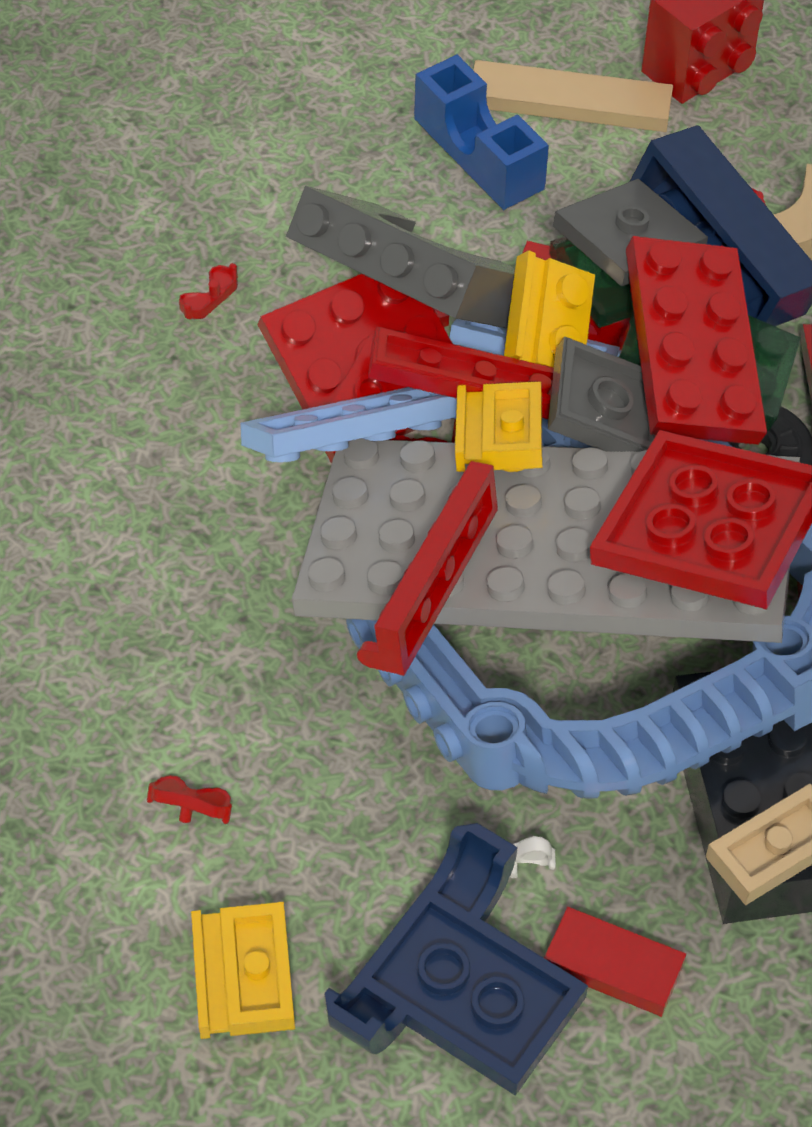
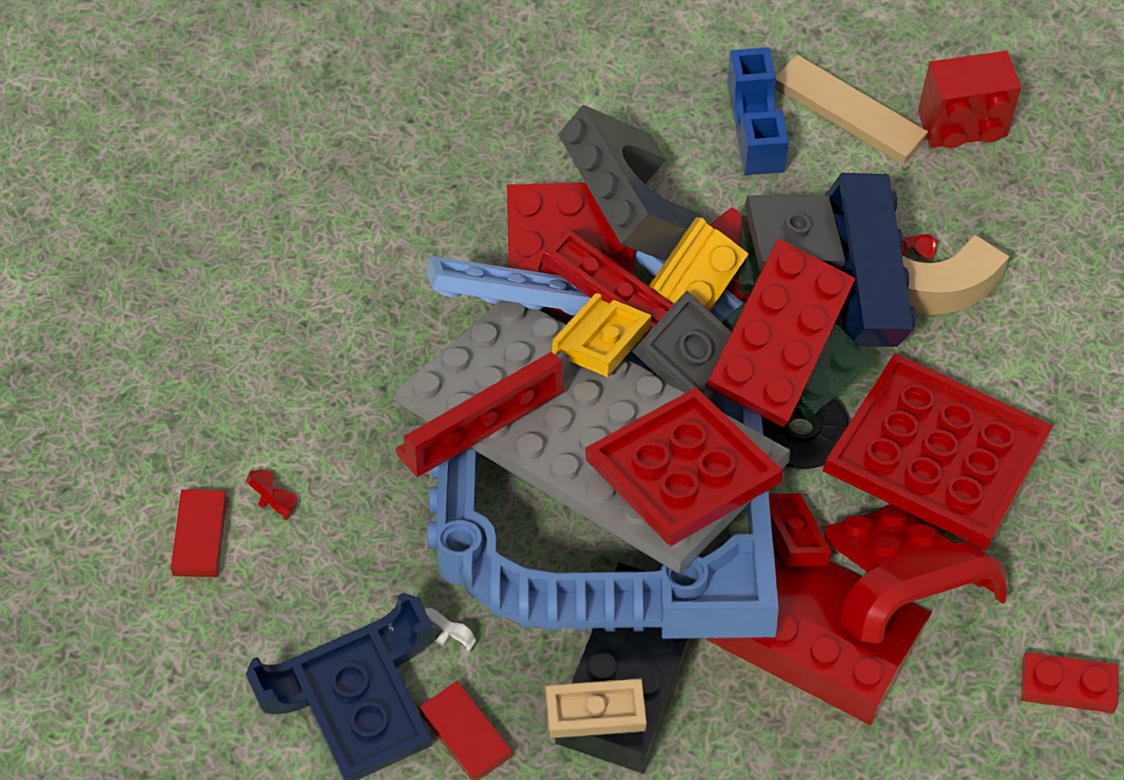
camera: 30 degrees right, 5 degrees up
(131, 889) = (199, 533): none -> red tile
(221, 285) = (518, 147): red piece -> none
(242, 970) = (230, 619): yellow plate -> none

